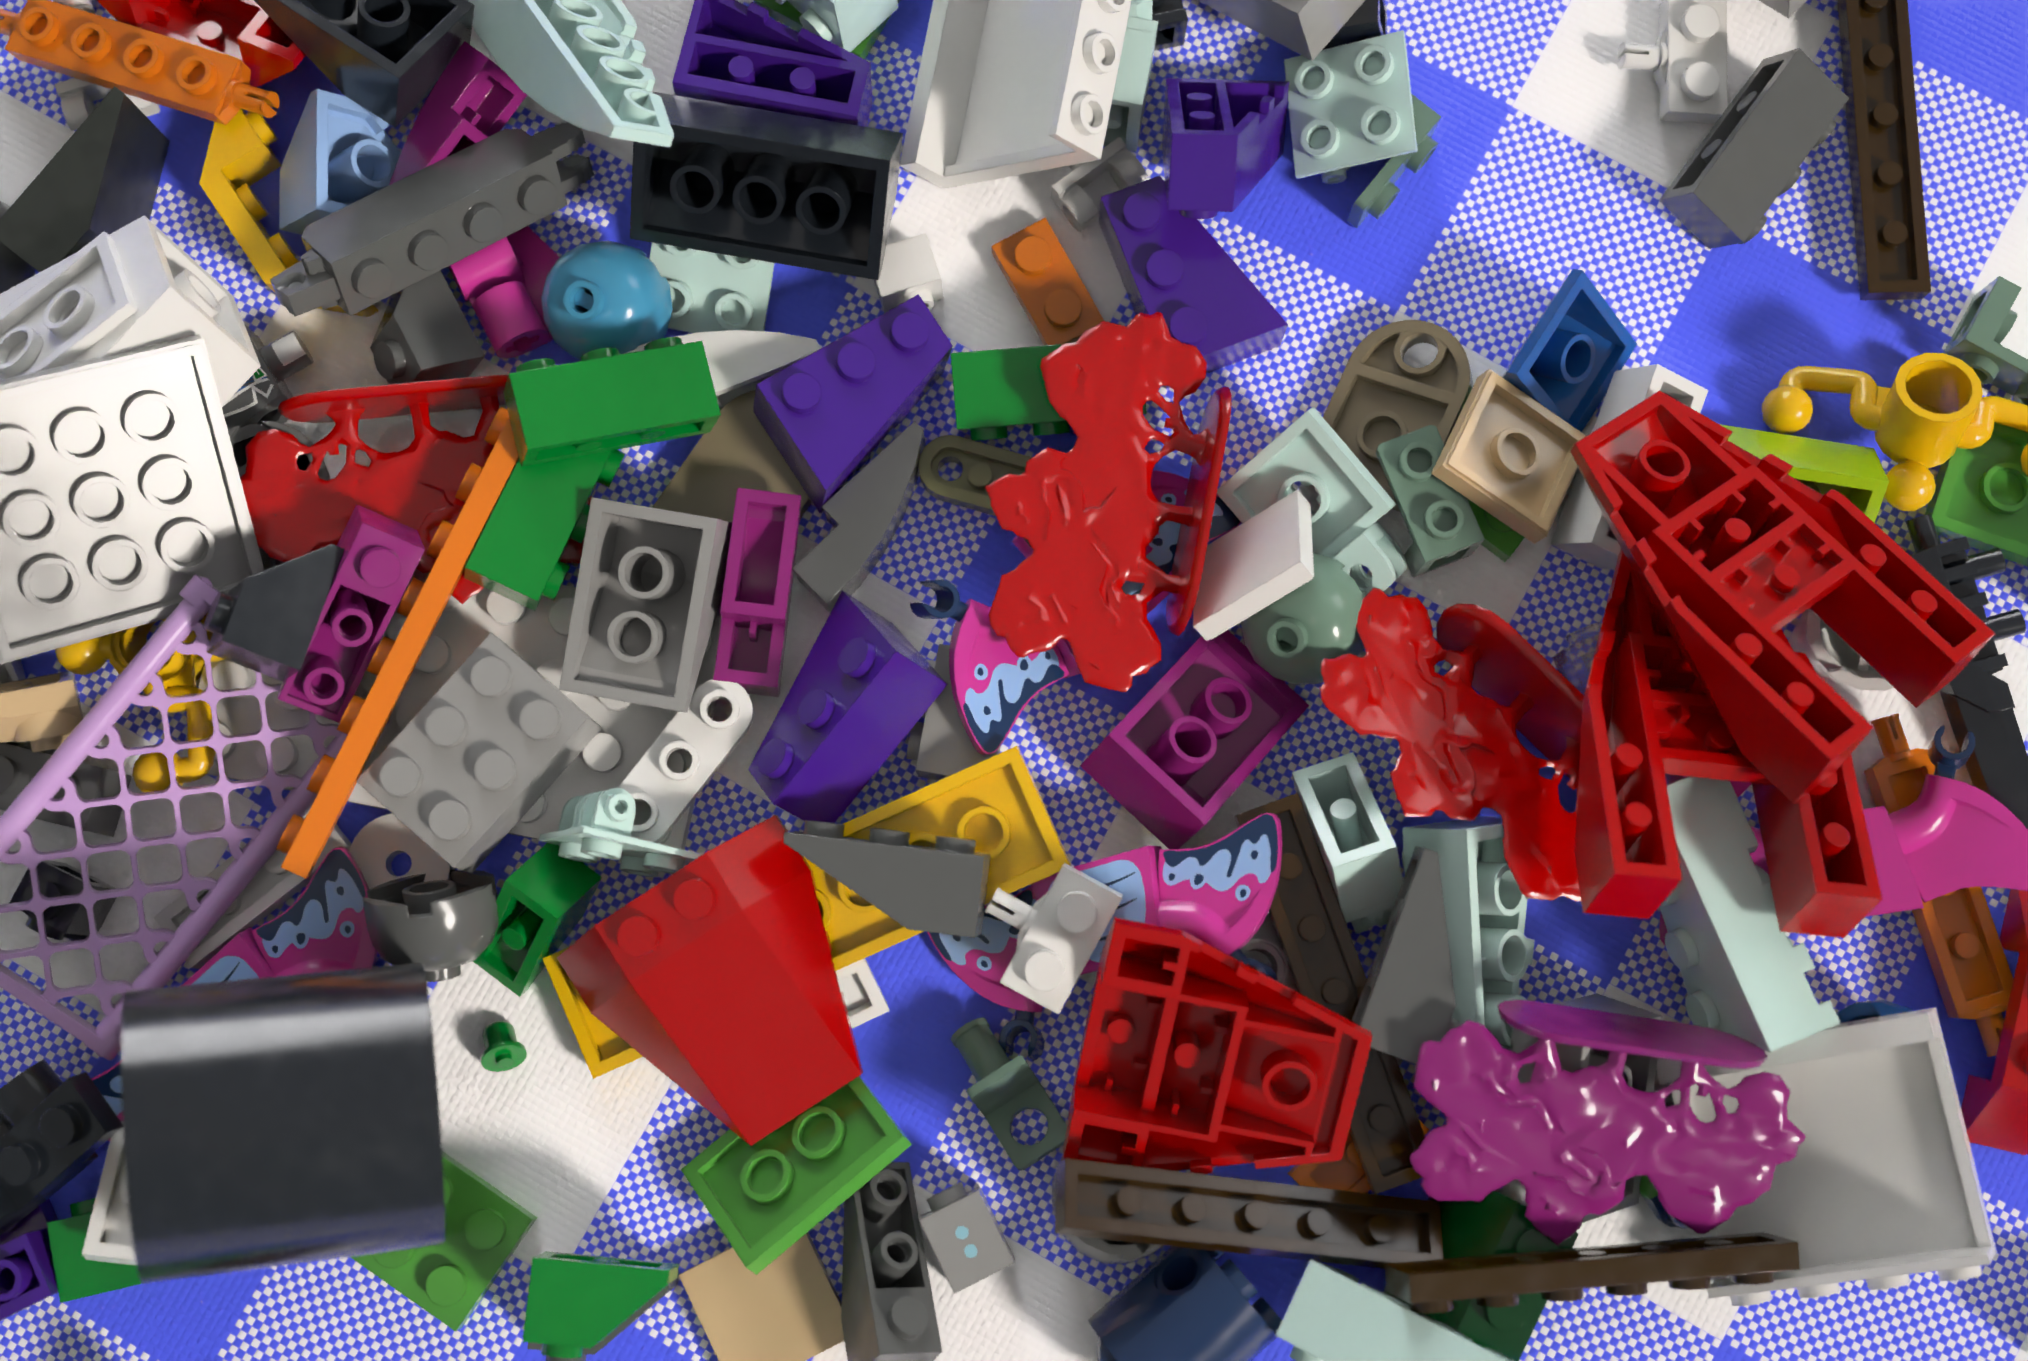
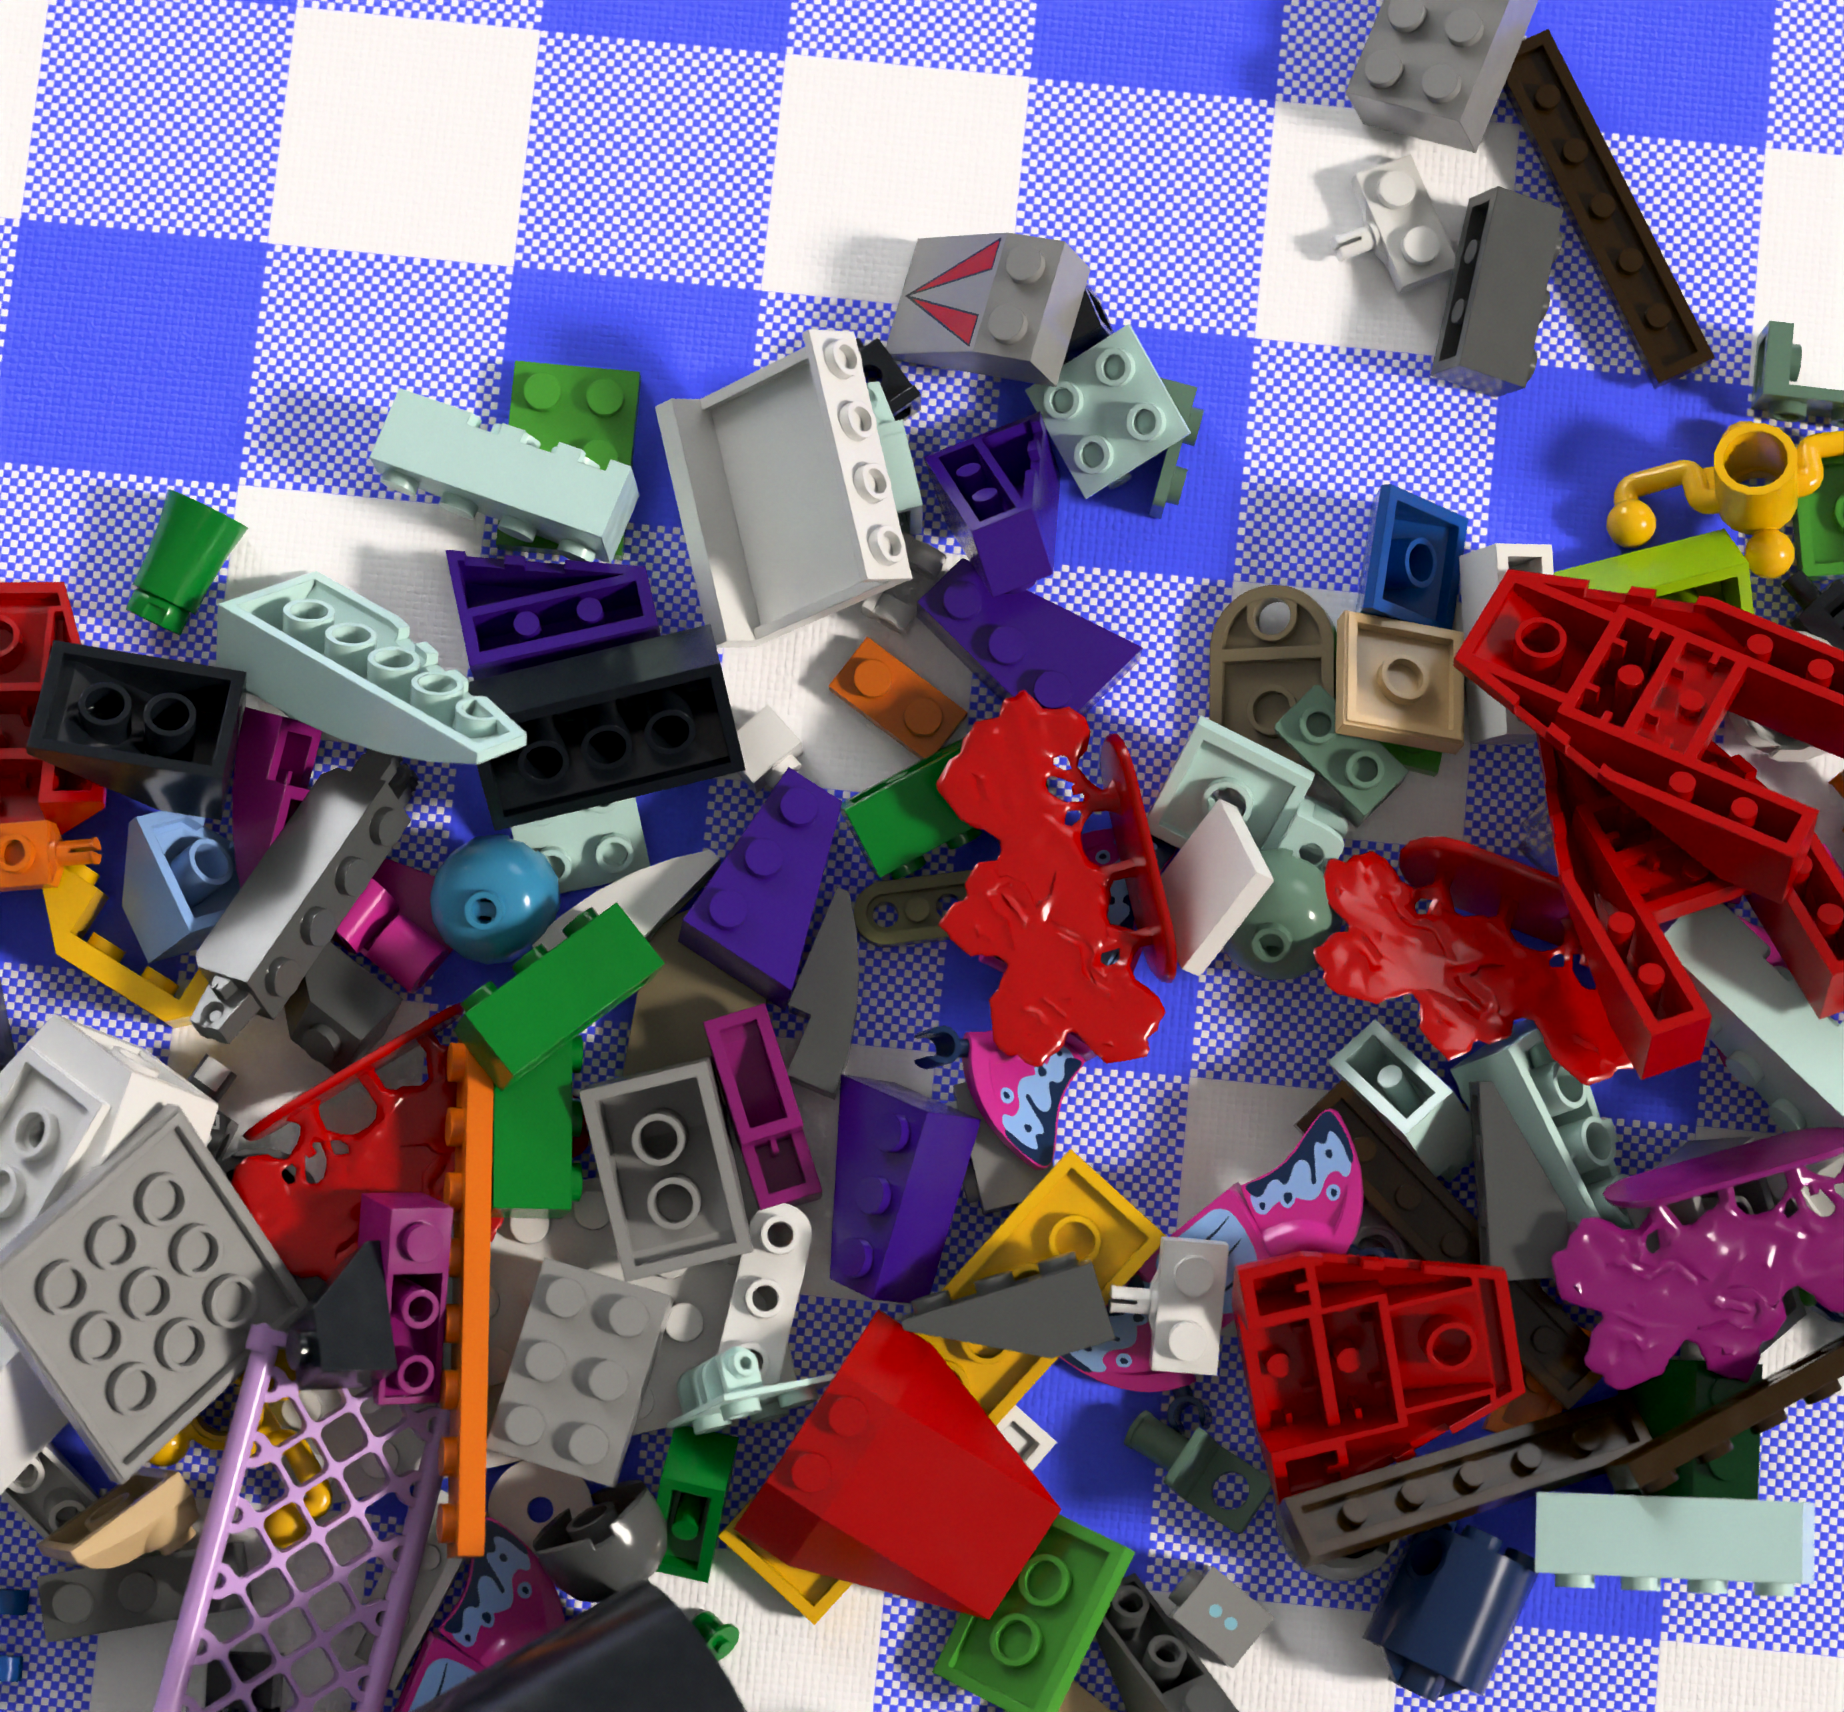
camera: 30 degrees left, 0 degrees up
(1194, 738) = (1224, 1069): magenta slope -> none

